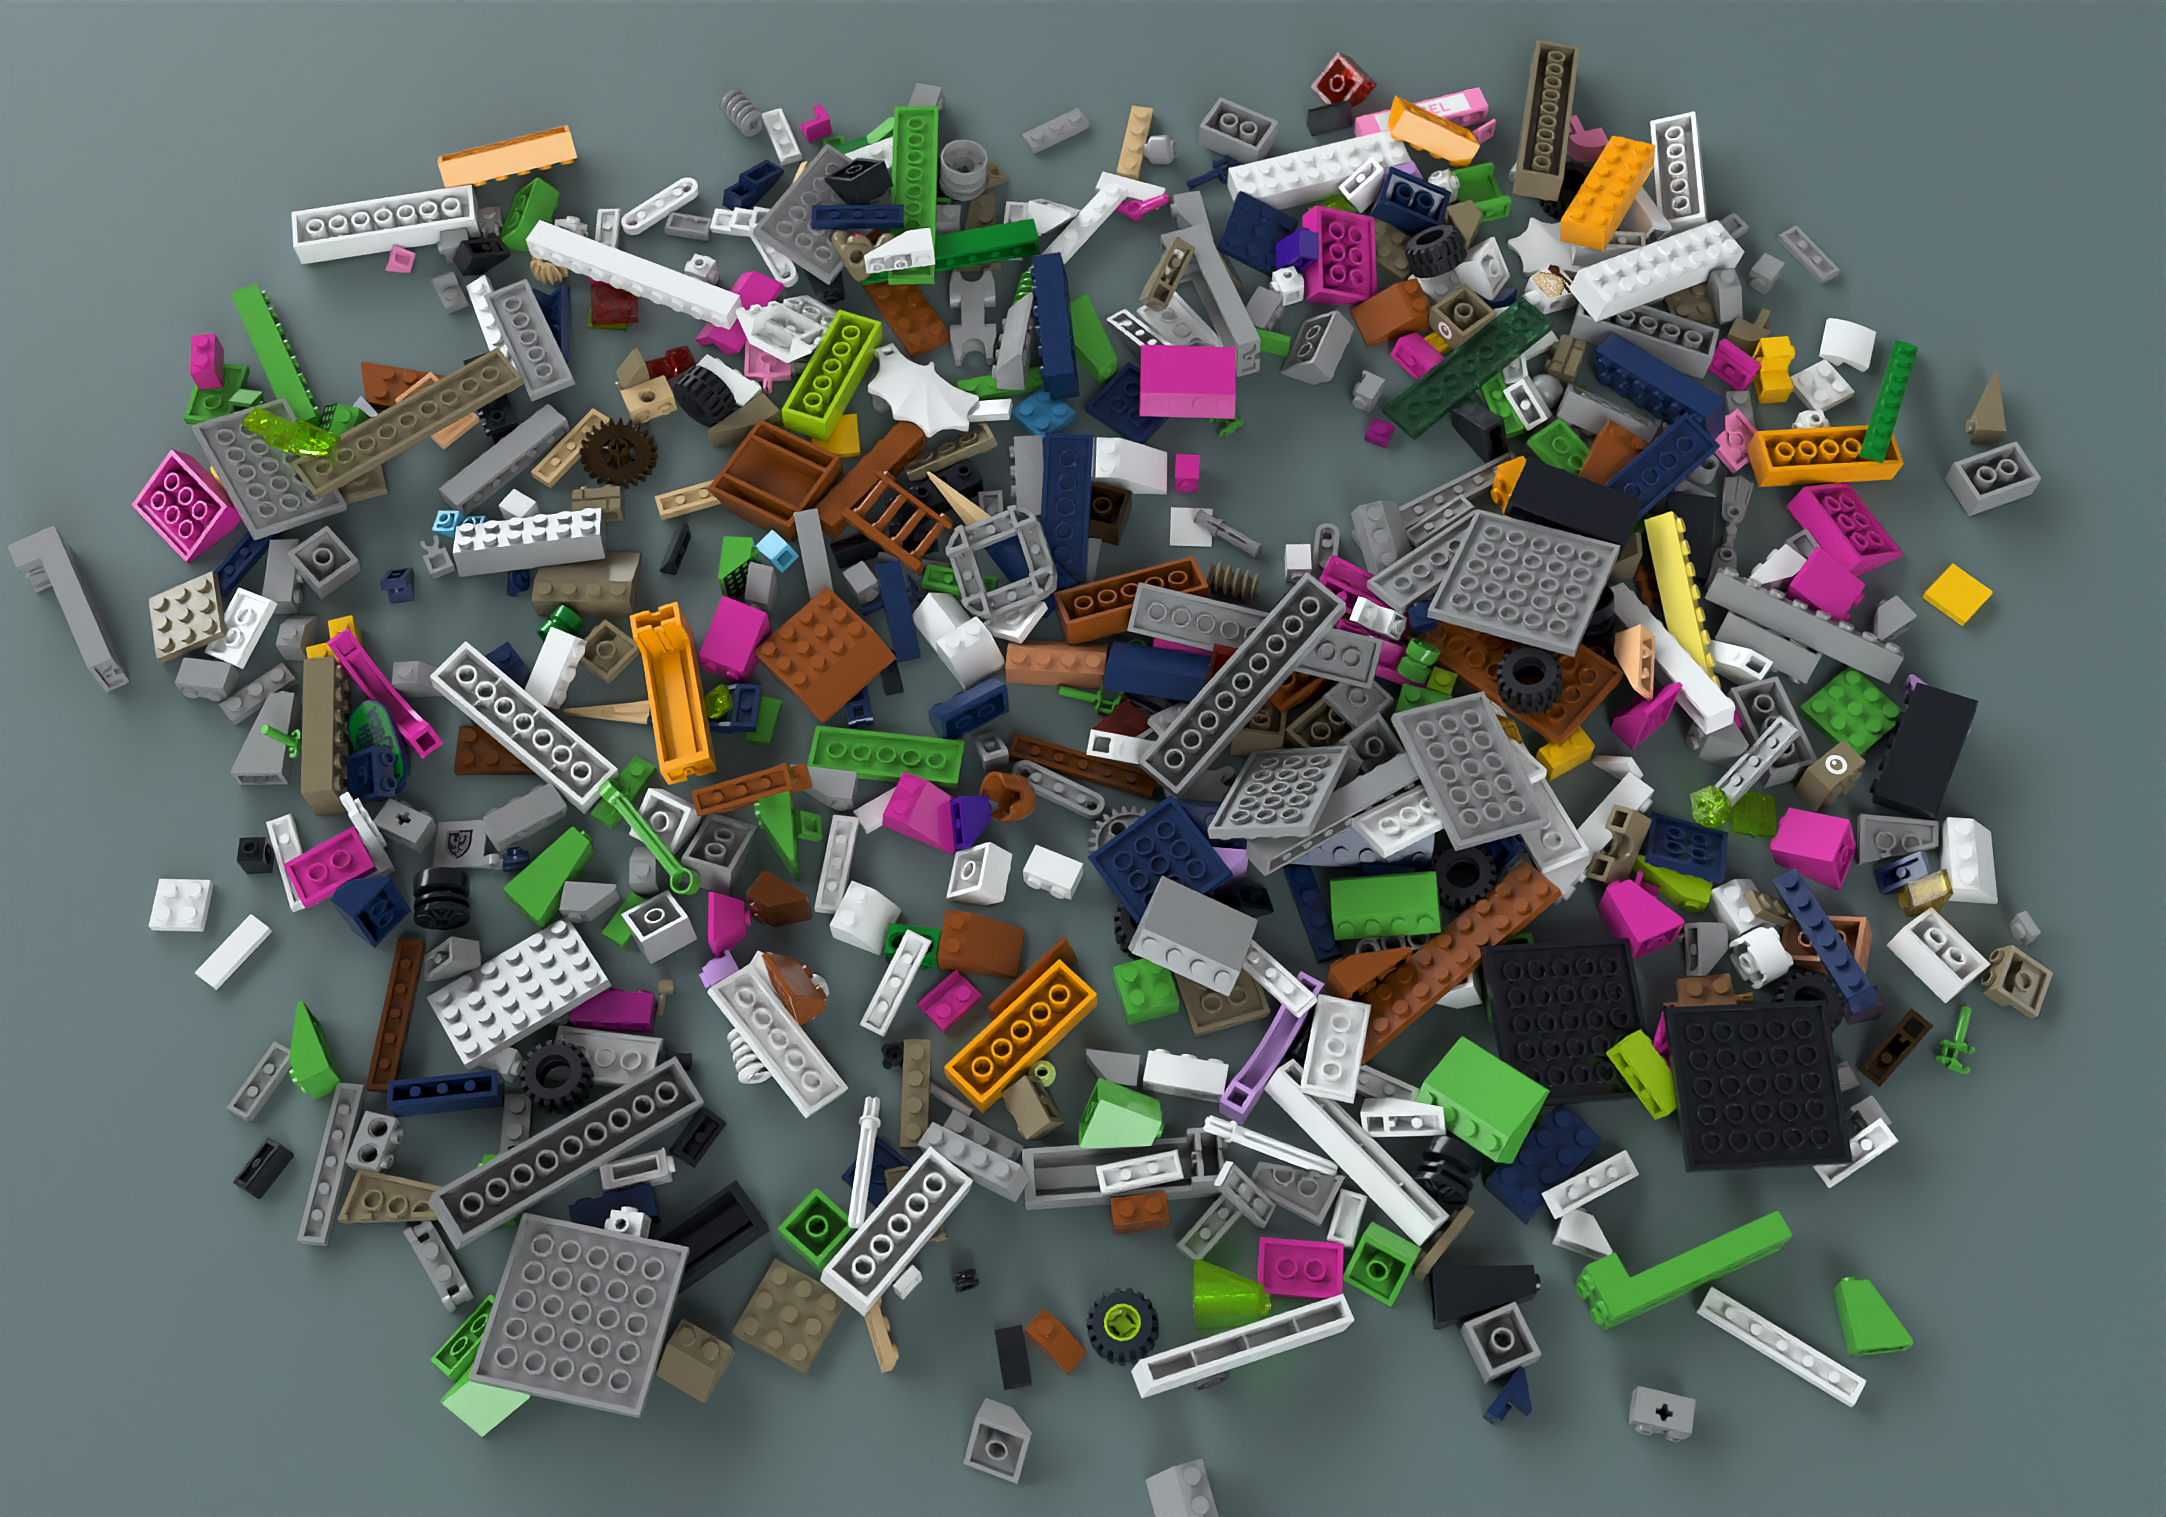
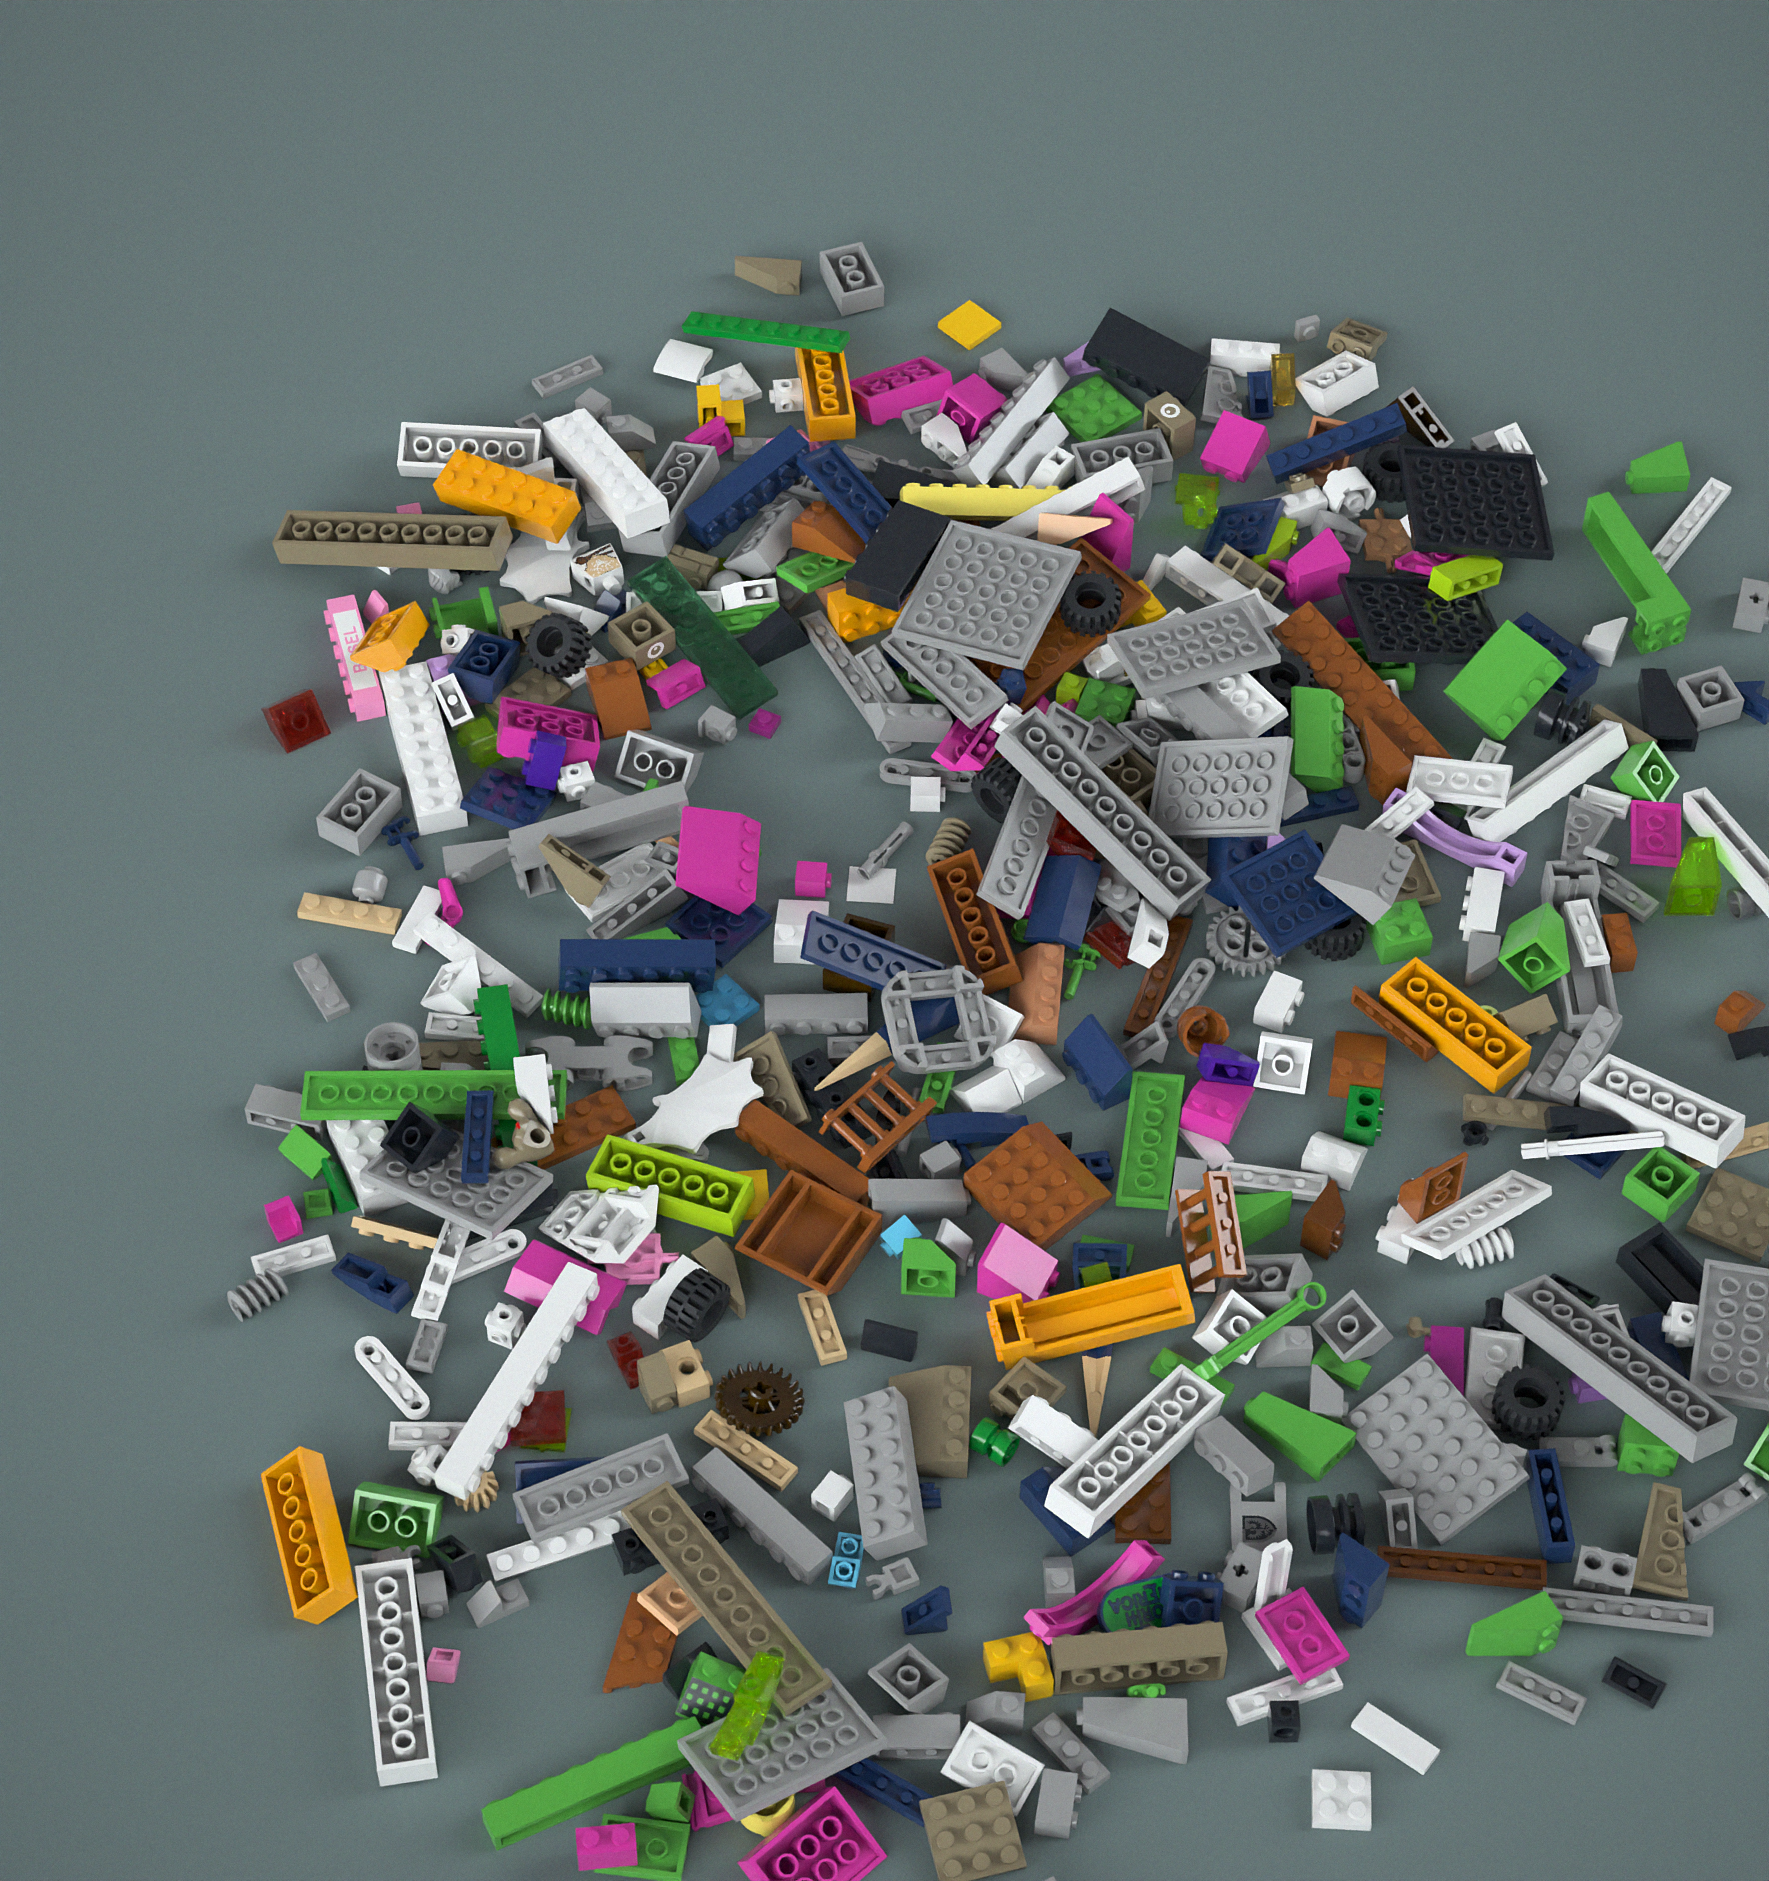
camera: 90 degrees left, 10 degrees down
(515, 859) = (1280, 1470): dark blue plate -> none
(608, 498) = (828, 1417): dark tan brick -> none
(718, 969) = (1399, 1275): lavender brick -> none
(726, 923) = (1352, 1270): dark pink slope -> none
(892, 1153) = (1582, 1122): none -> black slope
(896, 982) = (1406, 1124): white tile -> none
(949, 1001) = (1415, 1091): dark pink plate -> none
(965, 1280) = (1692, 1075): black bush -> none
(1123, 1326) = (1723, 956): black wheel -> none
(1232, 1132) = (1552, 850): white axle -> none
(1329, 118) = (342, 737): black slope -> none
(1401, 1118) = (1519, 742): white slope -> none
(1419, 658) = (1051, 690): bright green wheel -> none
(1590, 1184) = (1566, 626): white plate -> none
(1747, 335) = (666, 425): dark tan brick -> none
(1758, 759) = (1164, 475): light grey tile -> none
(1957, 1044) = (1405, 384): bright green piece -> none

